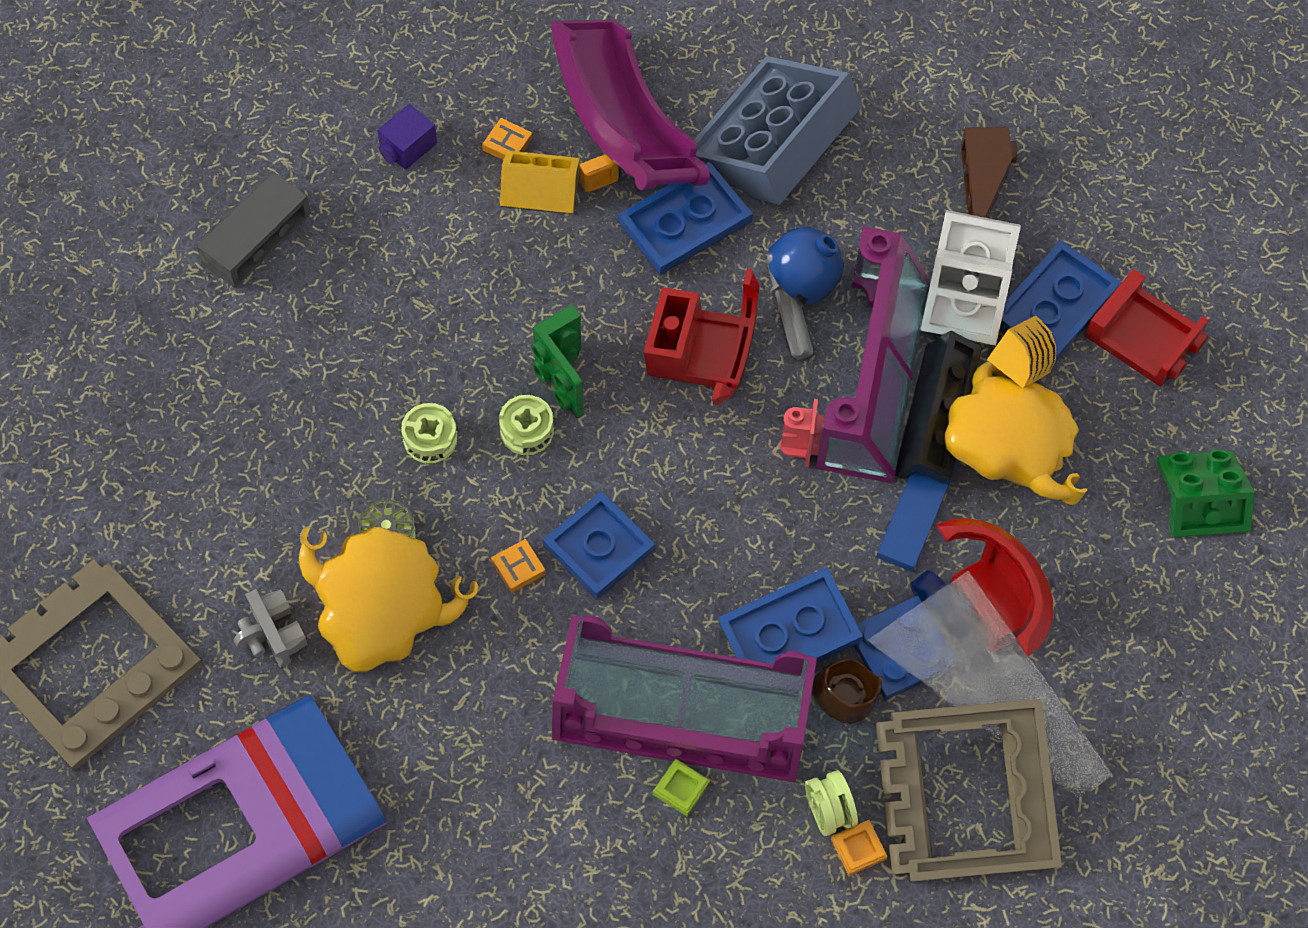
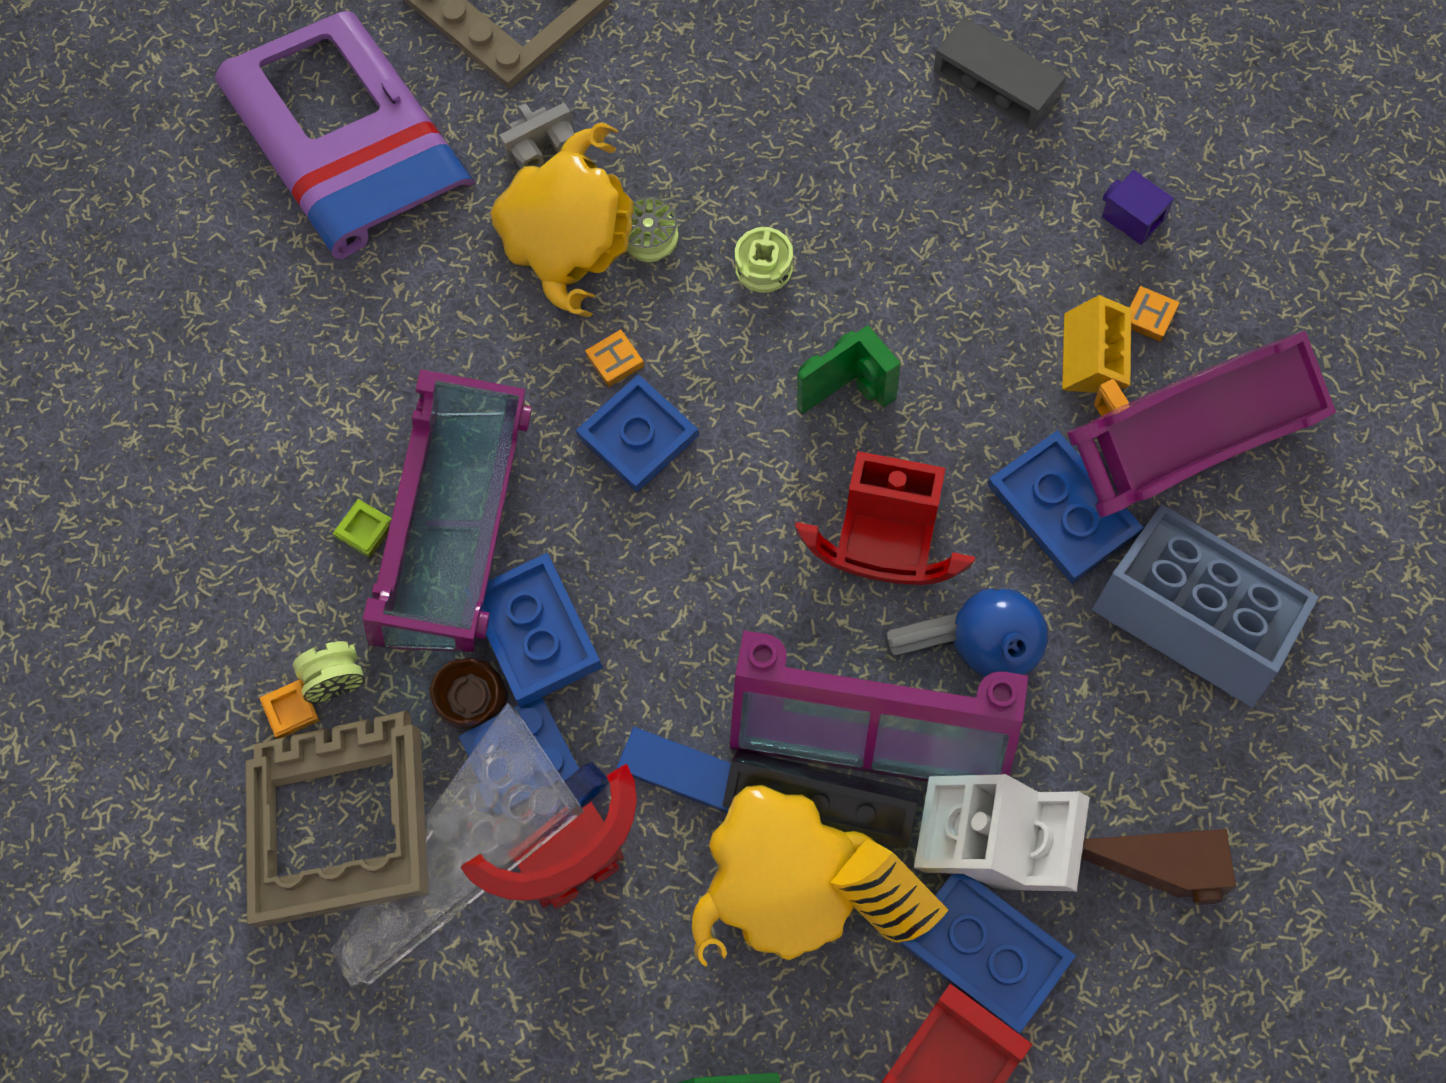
camera: 95 degrees right, 5 degrees up
(526, 424) = (778, 351): yellowish green wheel -> none
(802, 432) = (771, 621): coral hinge -> none

